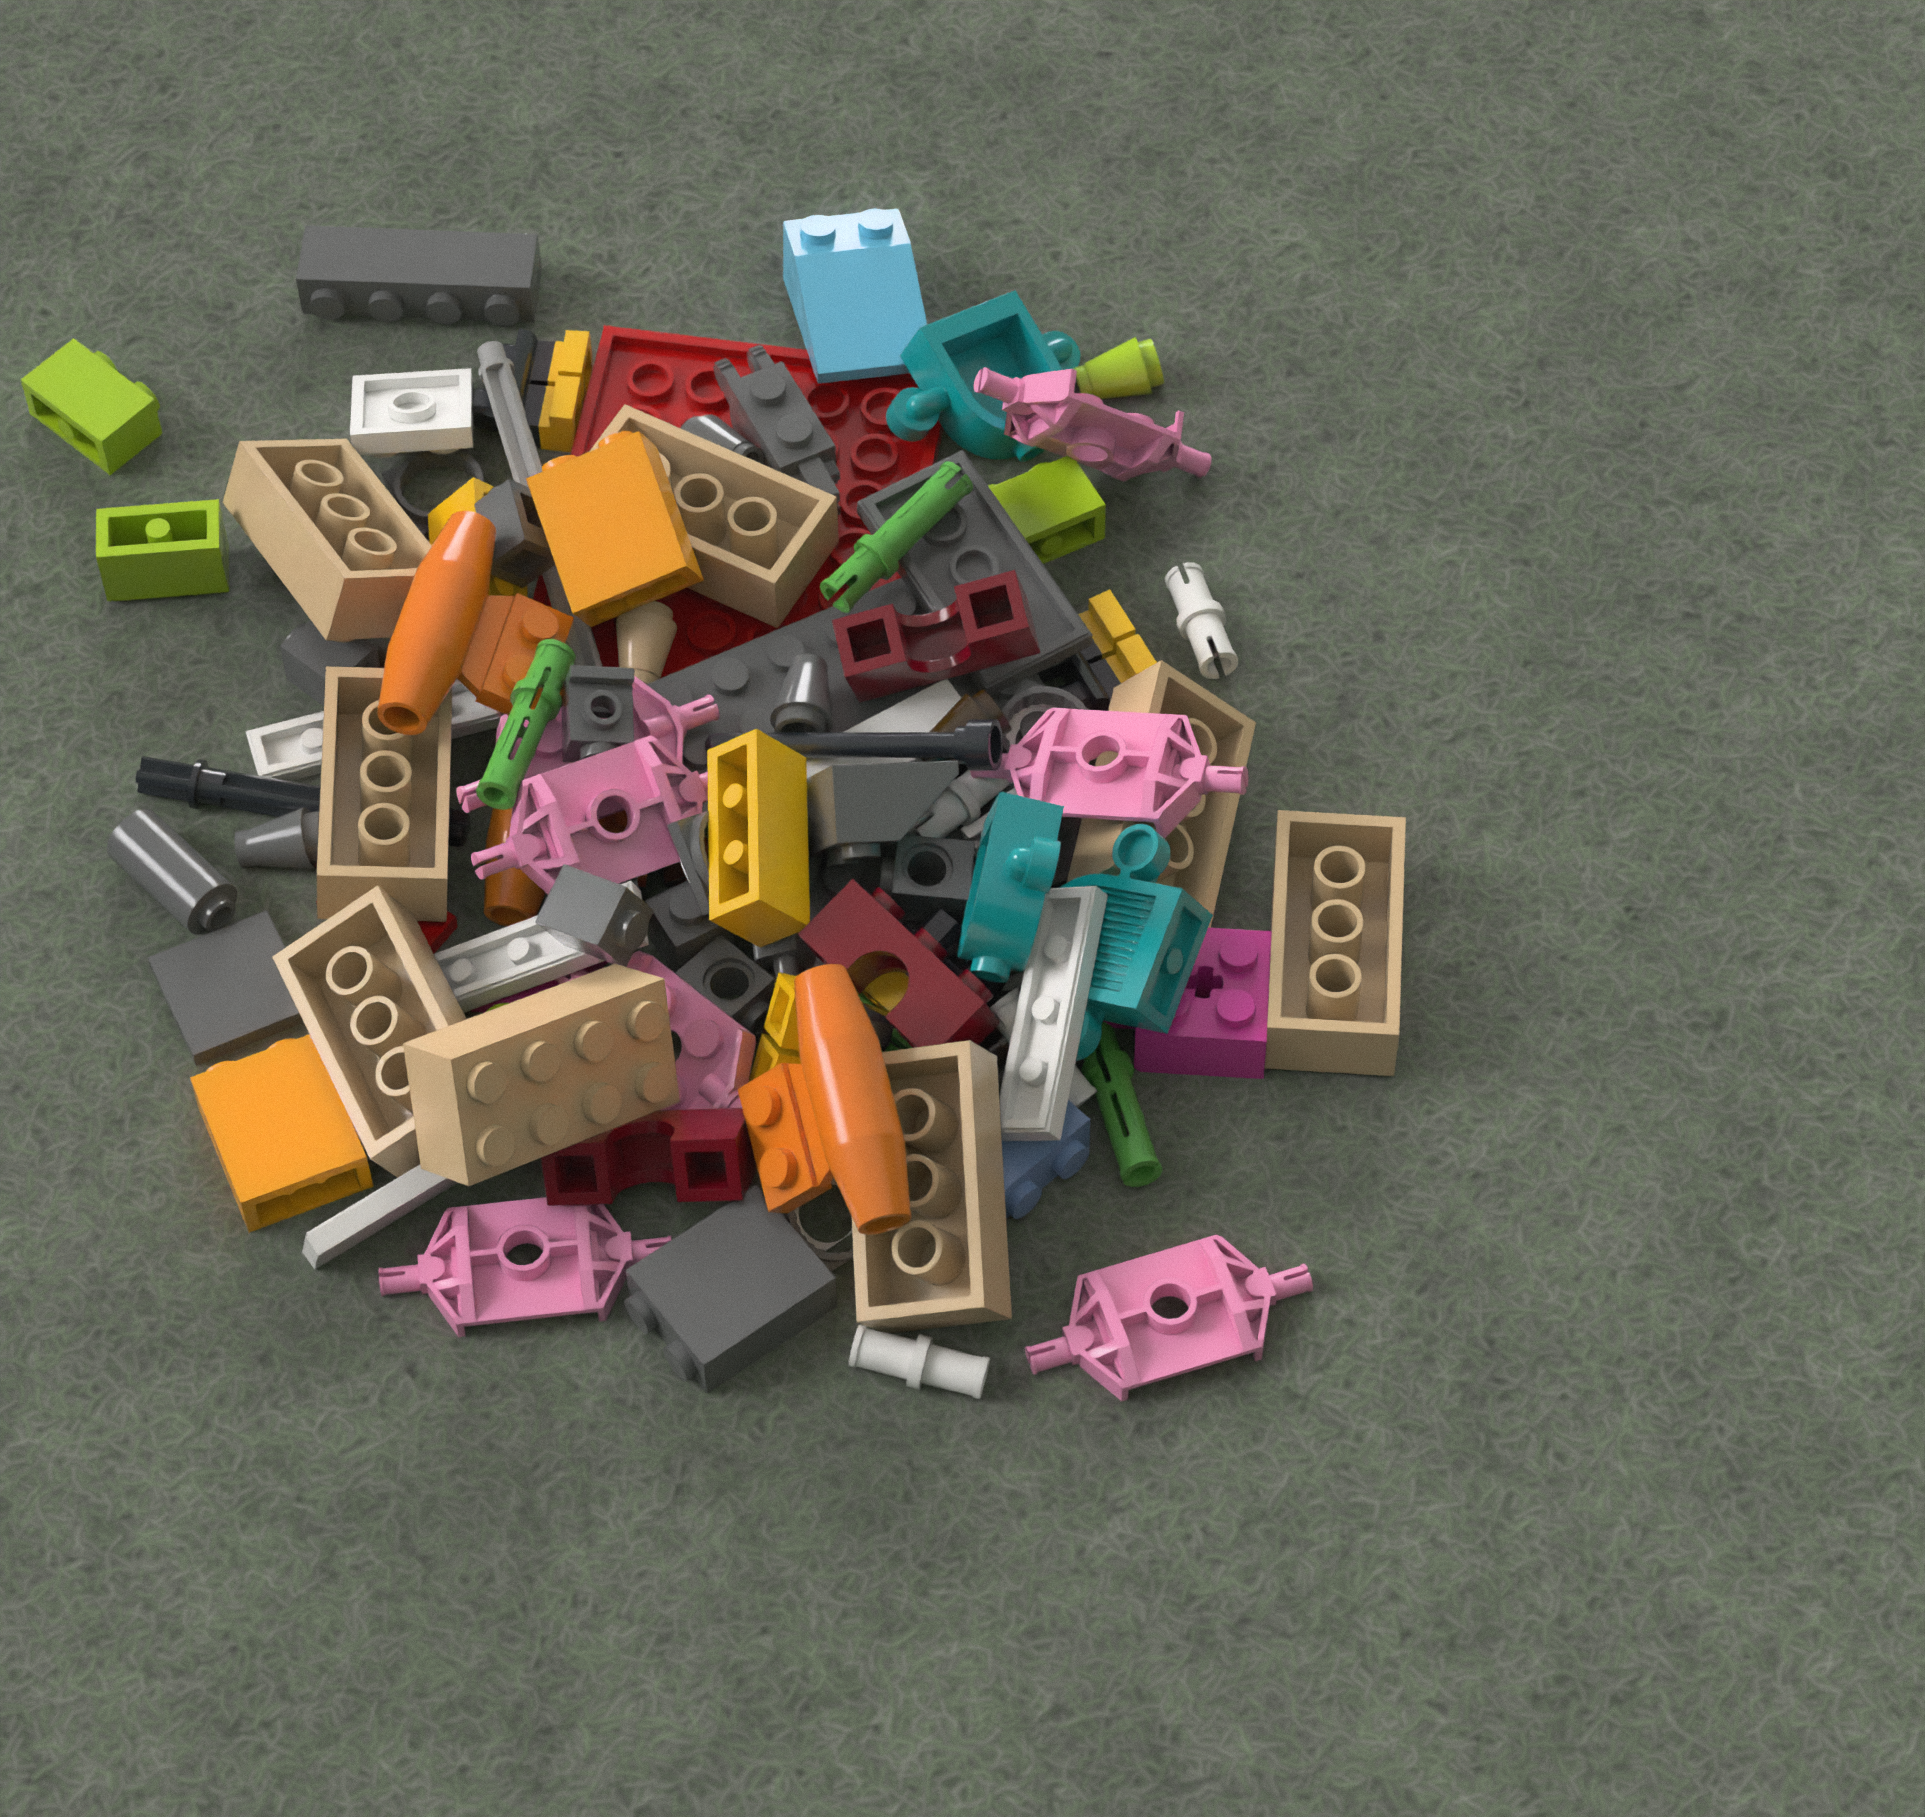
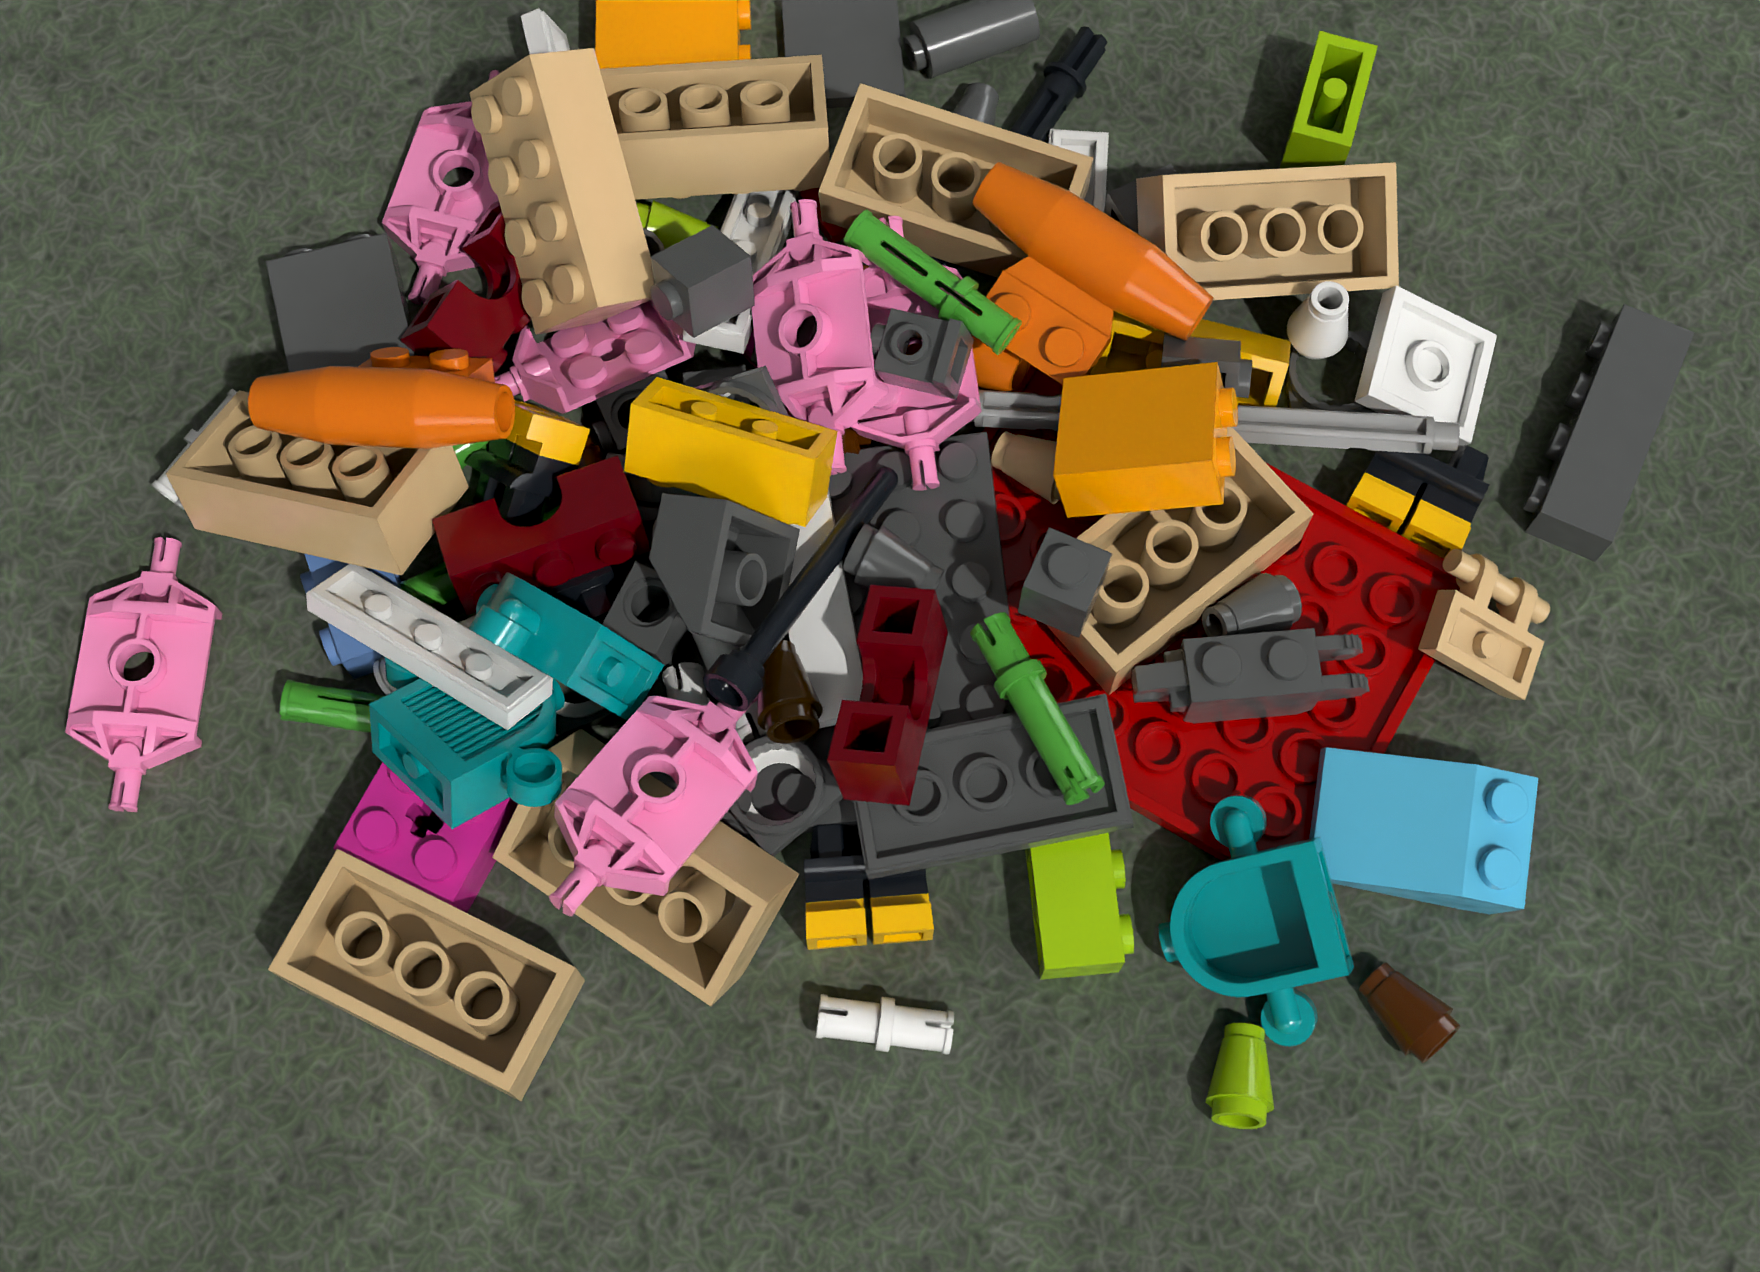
camera: 110 degrees right, 15 degrees up
(92, 405) = (1536, 105): lime brick -> none
(409, 479) = (1320, 322): none -> white cone
(659, 303) = (1475, 639): none -> tan plate
(782, 531) = (1064, 582): none -> dark grey brick
(1017, 267) = (1410, 1013): none -> reddish brown cone
(1052, 417) = (1106, 1040): bright pink plate -> none

